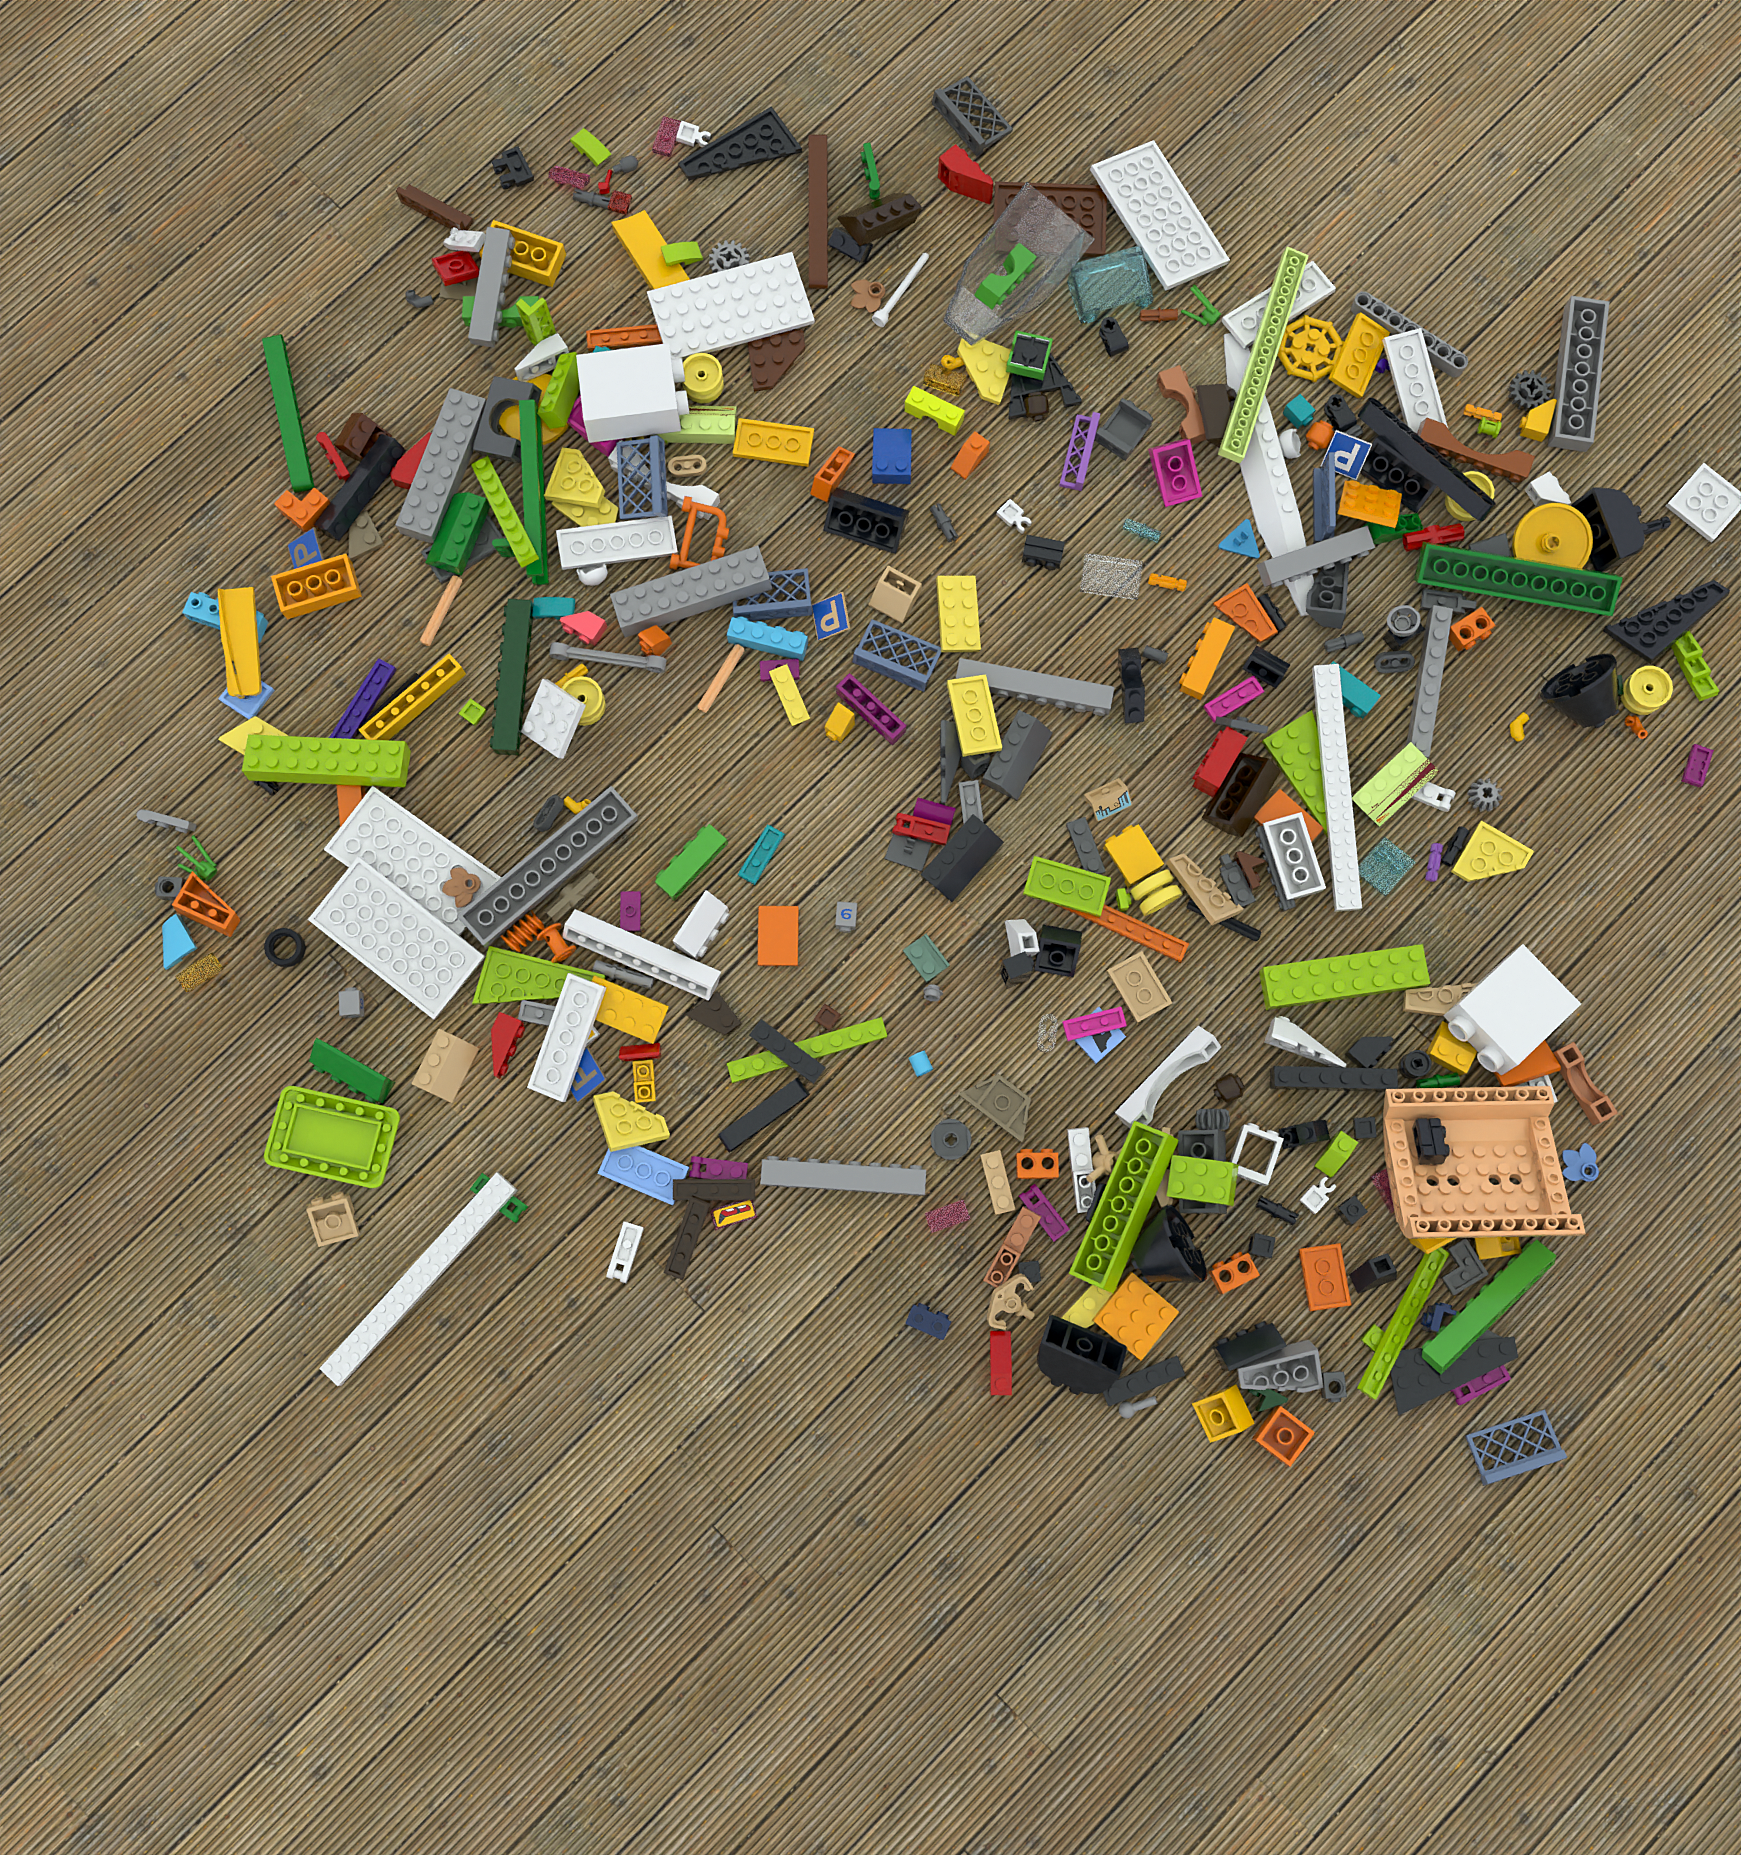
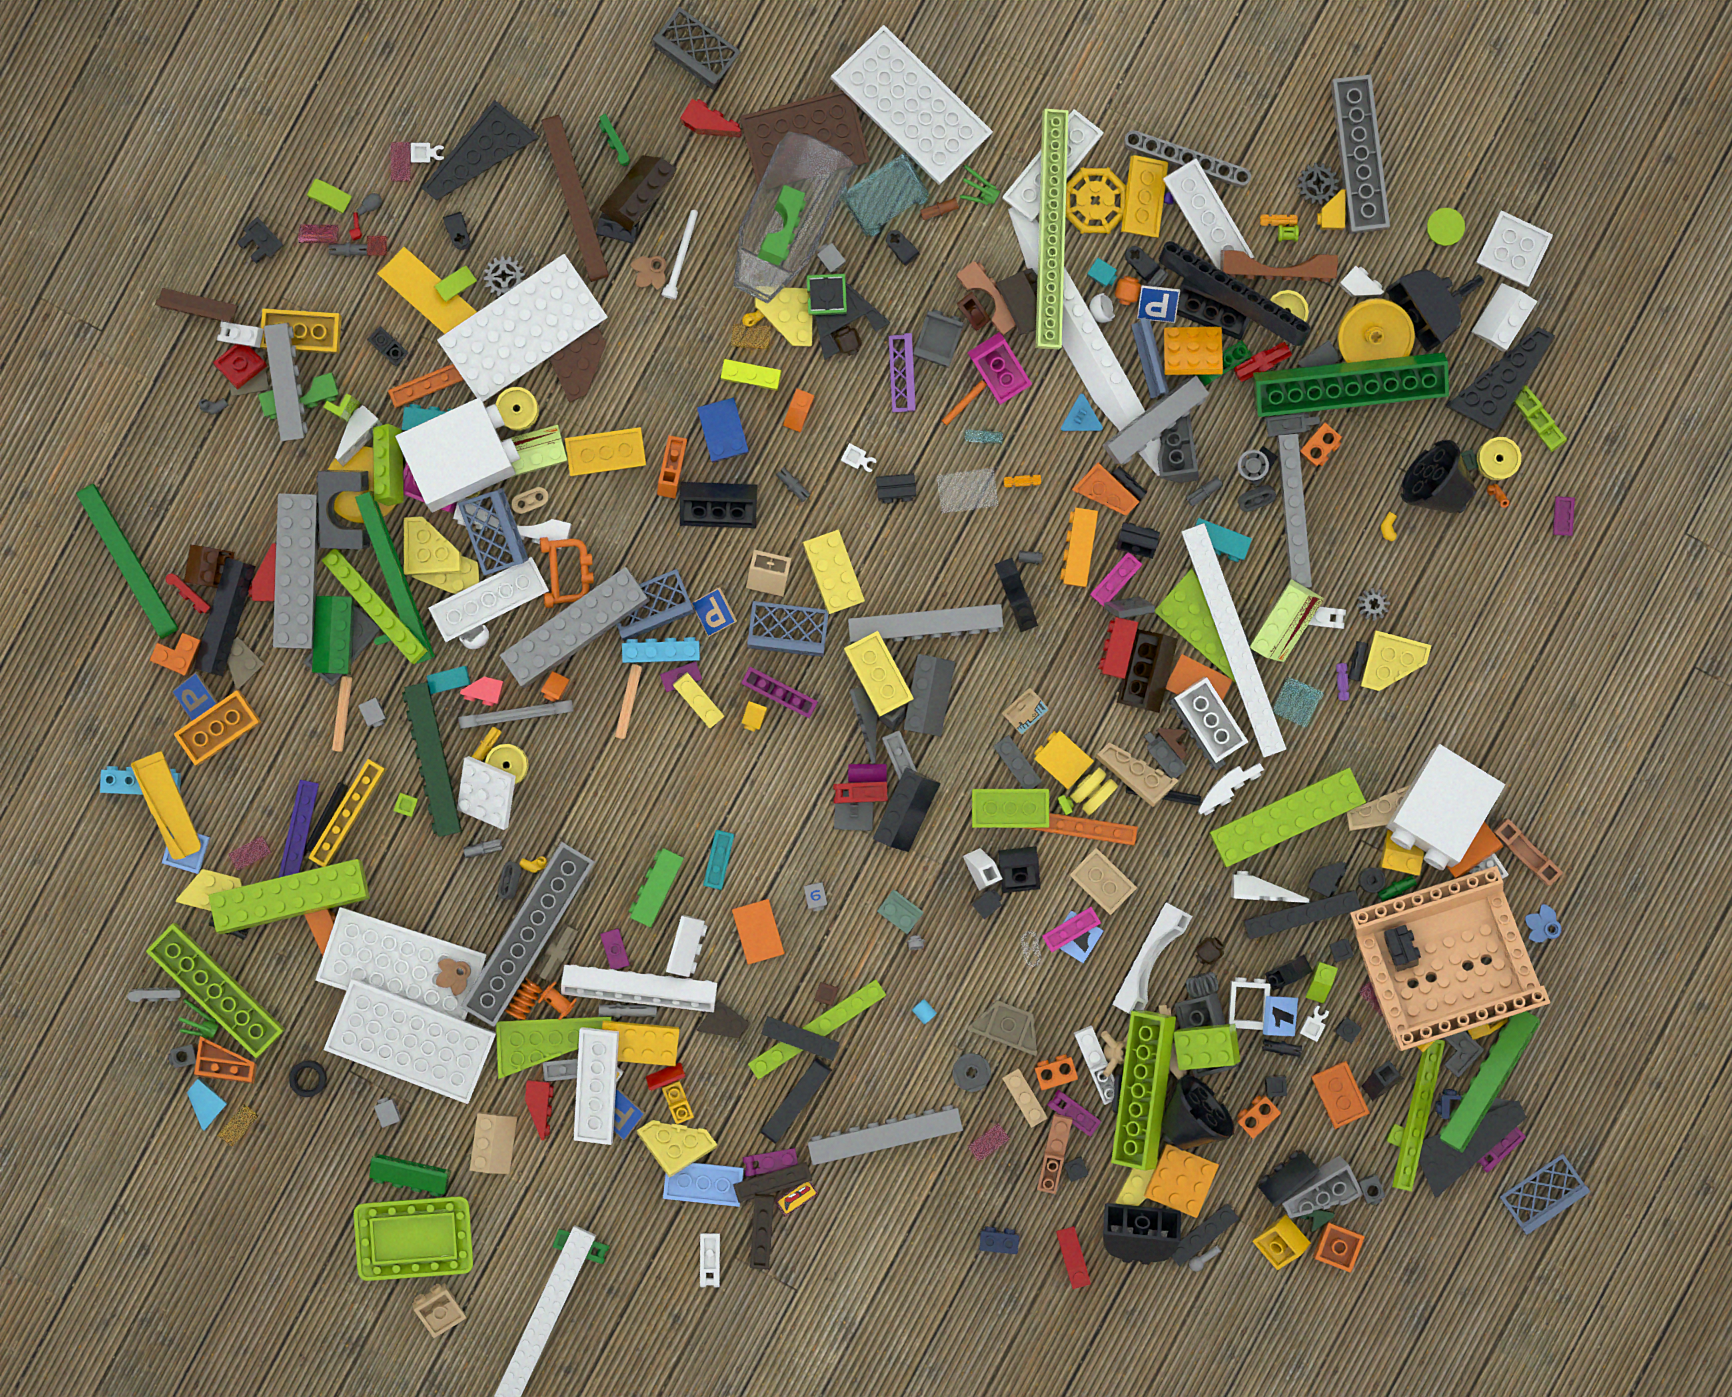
camera: 20 degrees left, 10 degrees up
(224, 833) = (215, 990): none -> lime brick
(306, 714) = (250, 853): none -> clear pink plate
(470, 616) = (373, 713): none -> light grey brick
(533, 775) = (482, 848): none -> flat silver axle
(599, 292) = (387, 346): none -> black slope
(699, 210) = (456, 227): none -> black piece
(1006, 1299) = (1061, 1200): tan piece -> none
(1043, 326) = (830, 258): none -> light grey brick
(1131, 495) = (964, 402): none -> orange bar
(1165, 411) = (973, 311): none -> reddish brown slope
(1284, 1175) = (1280, 1016): none -> light blue tile
(1285, 932) = (1221, 790): none -> white slope
(1644, 465) = (1445, 226): none -> lime tile
(1682, 561) = (1504, 317): none -> white slope

